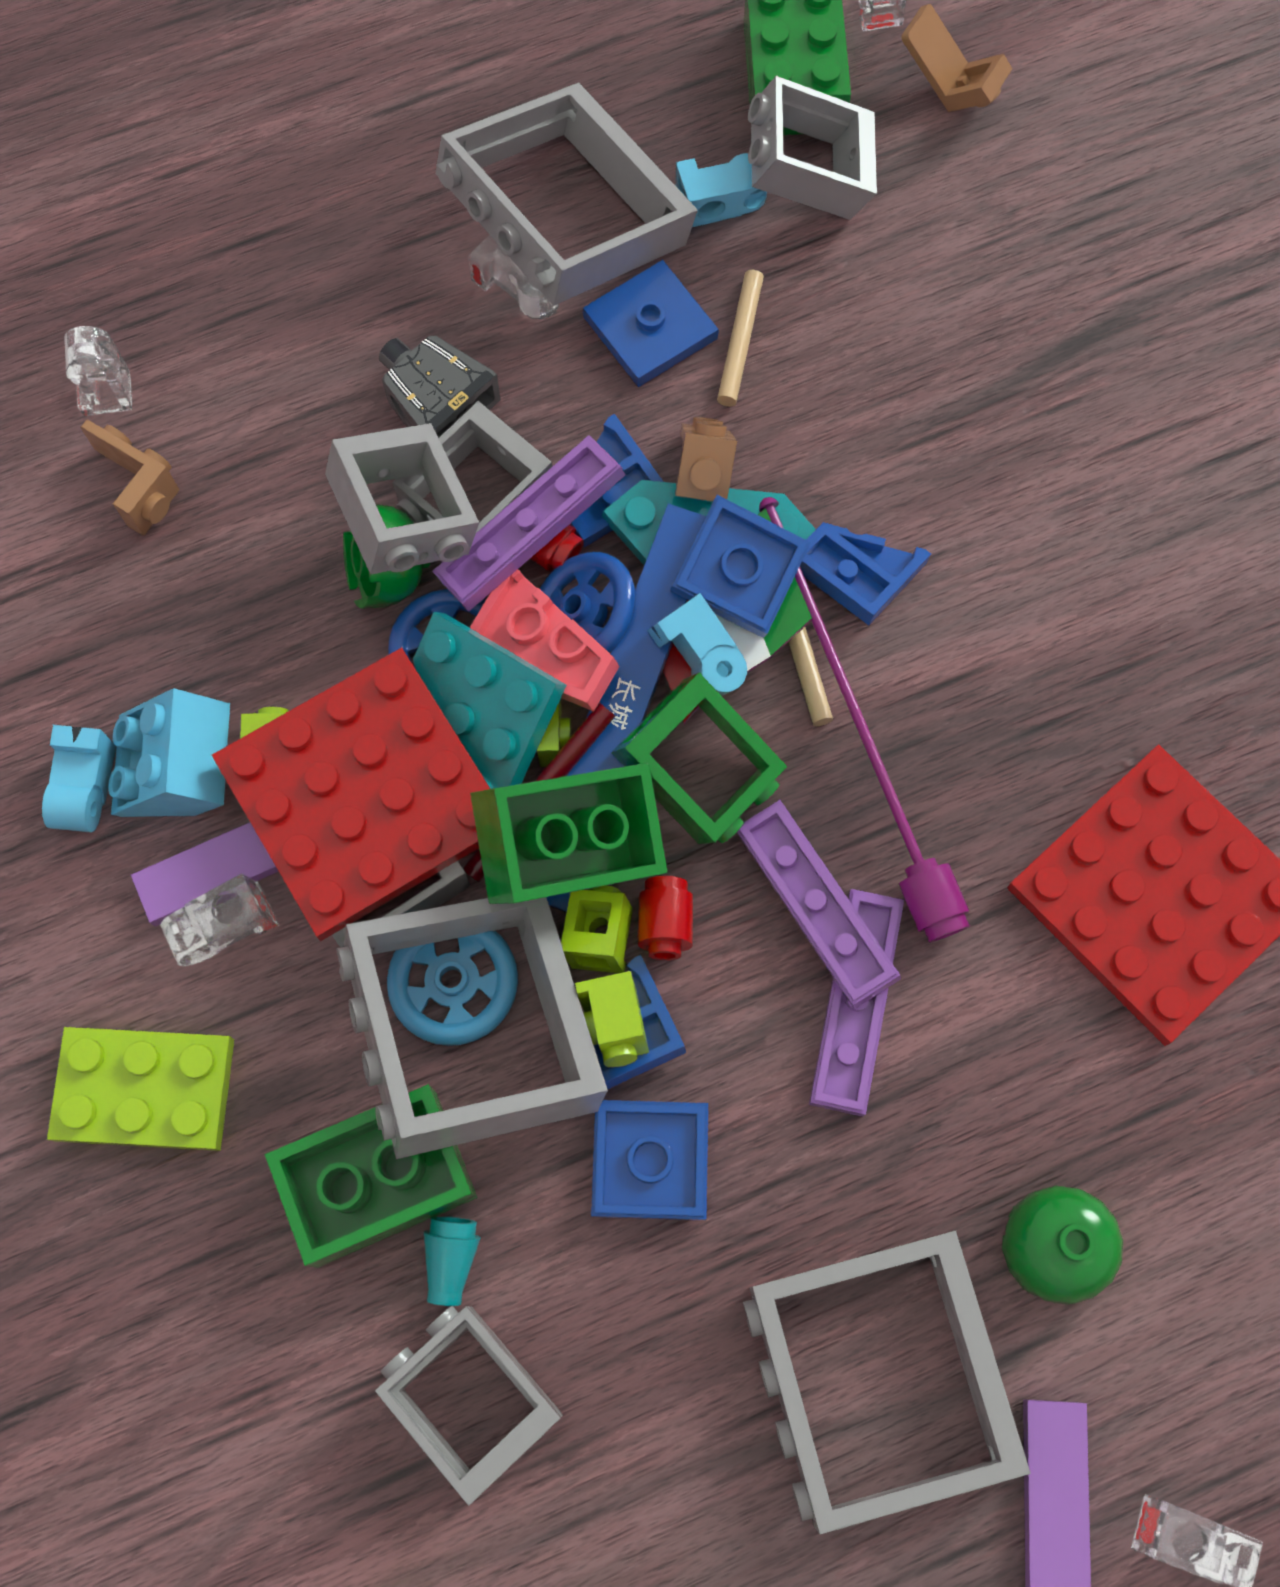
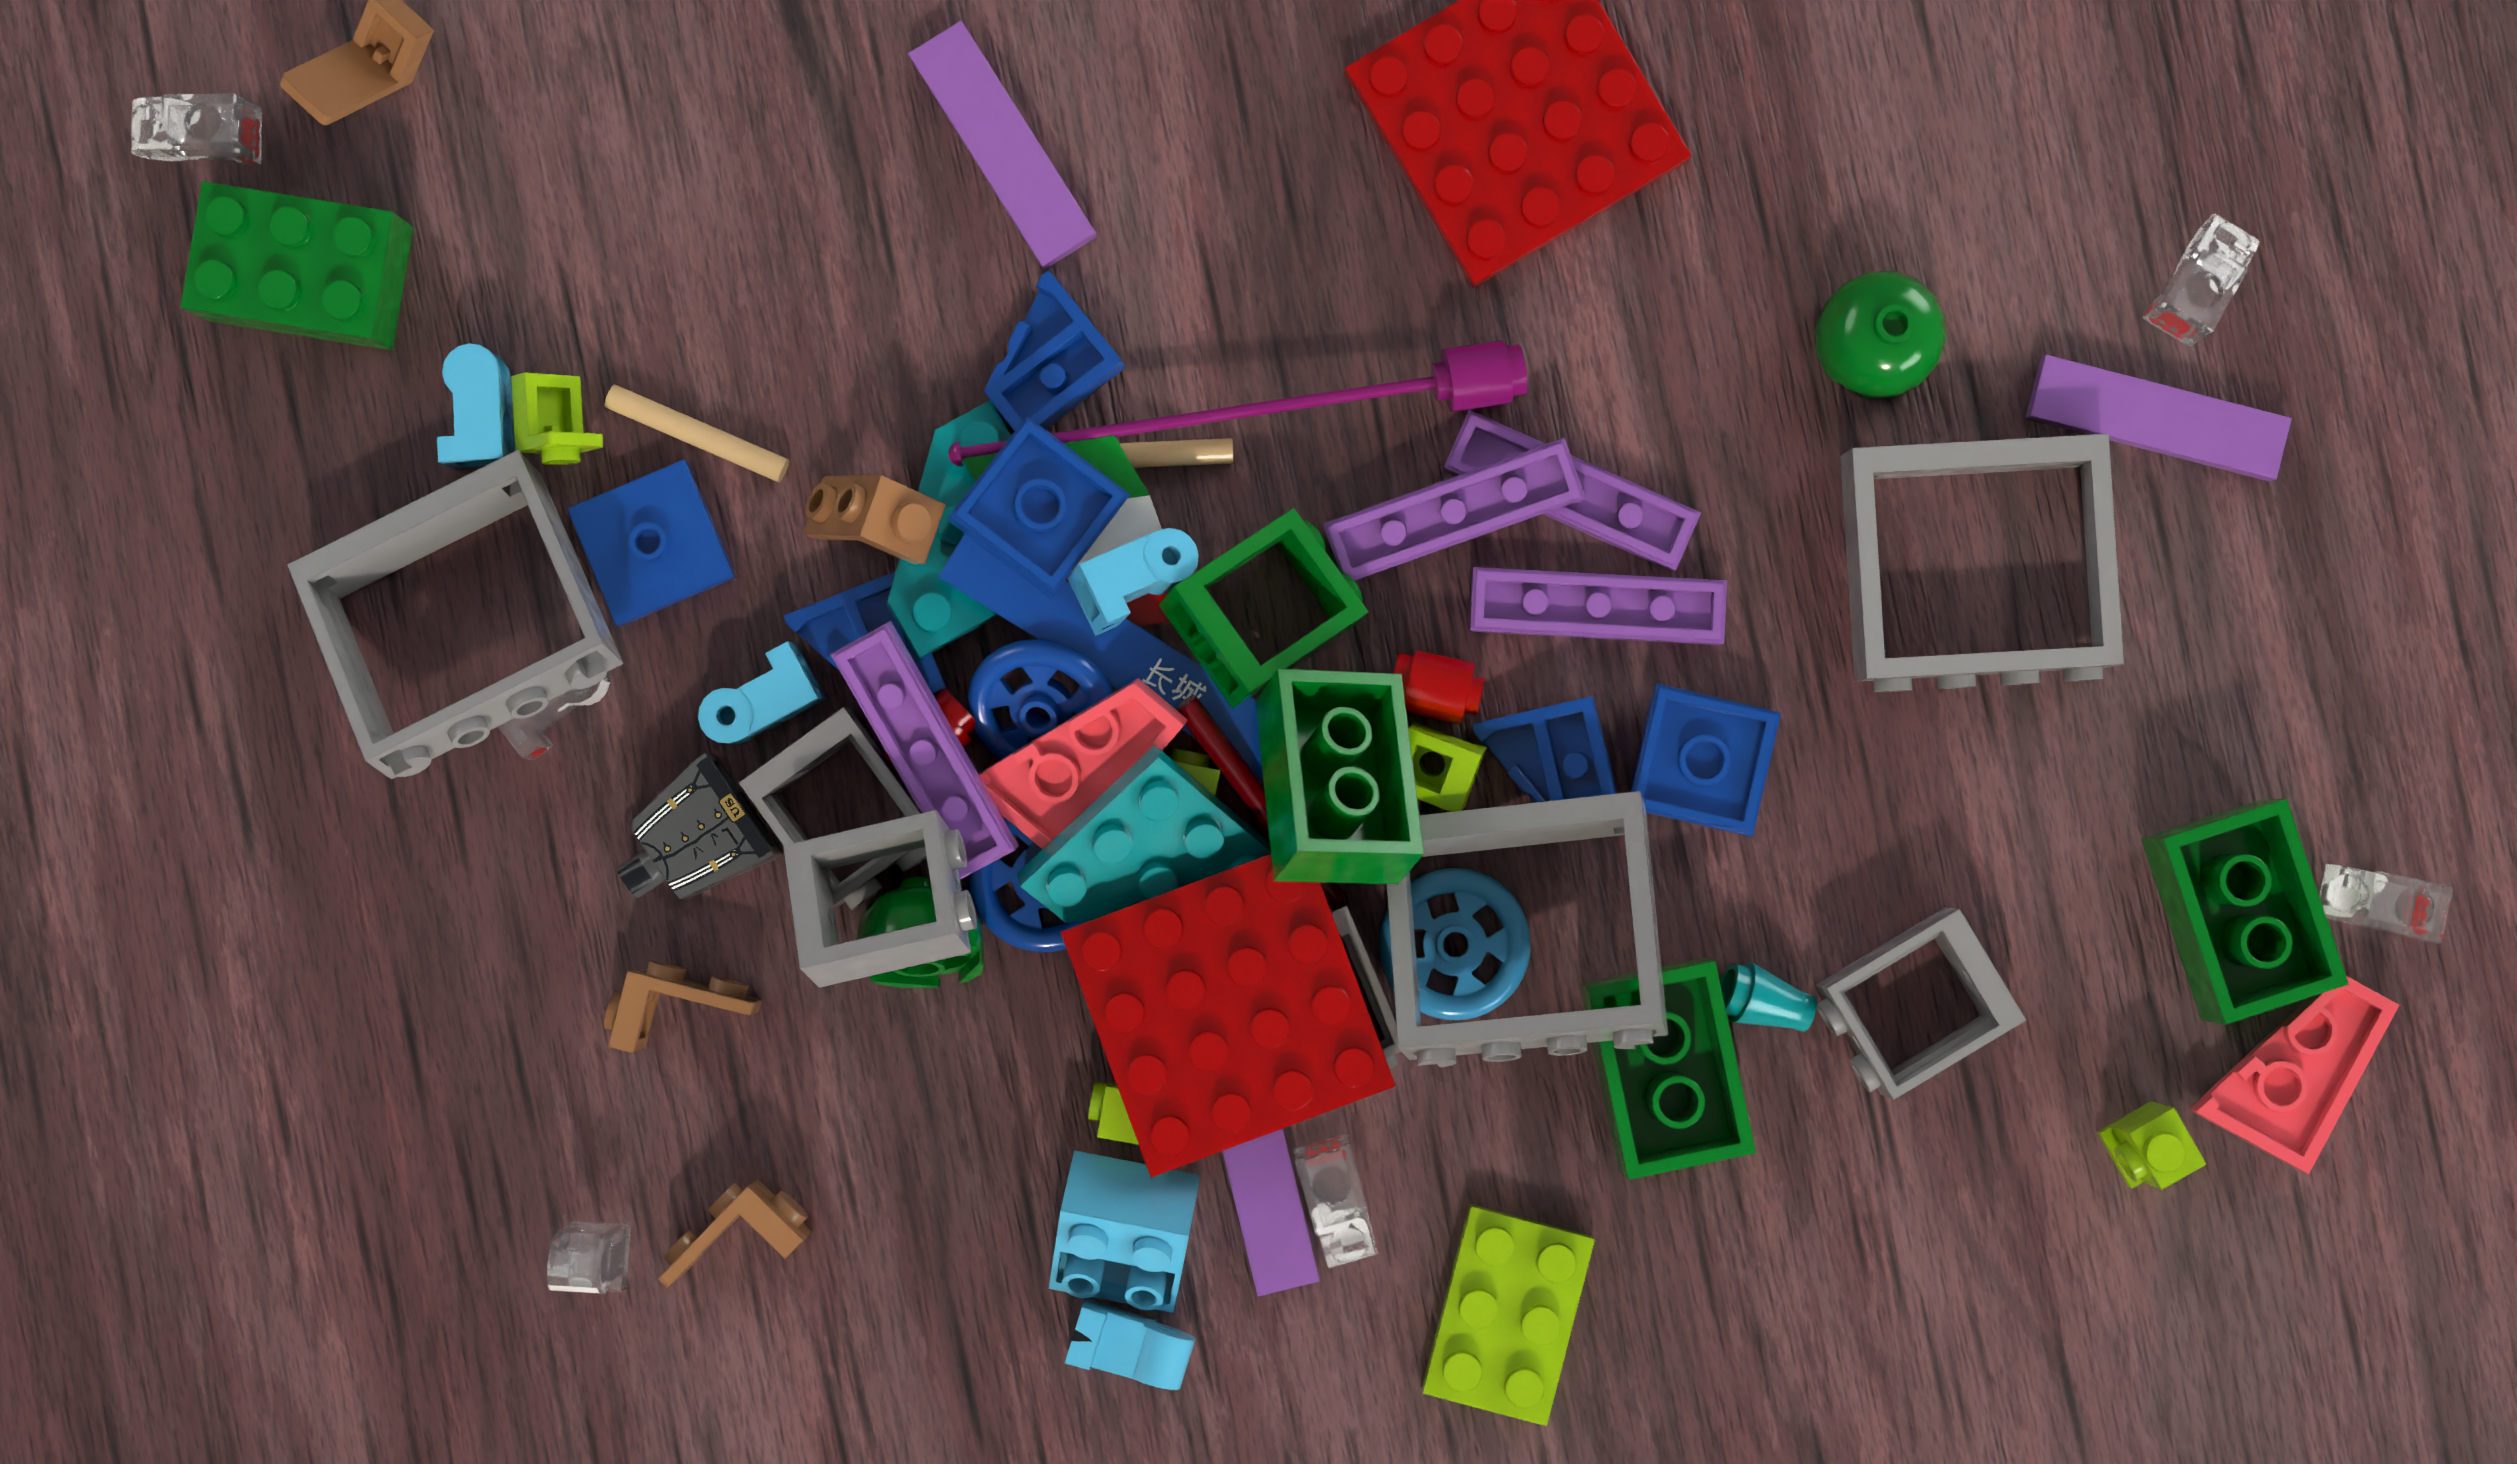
camera: 85 degrees left, 15 degrees up
(302, 375) = (633, 1010): none -> medium nougat bracket
(546, 416) = (763, 703): none -> medium azure leg
(614, 1017) = (1552, 768): lime brick -> none
(727, 233) = (550, 418): none -> lime bracket
(764, 1045) = (1597, 606): none -> medium lavender tile
(822, 117) = (445, 223): light grey window -> none
(1018, 505) = (1002, 145): none -> medium lavender tile

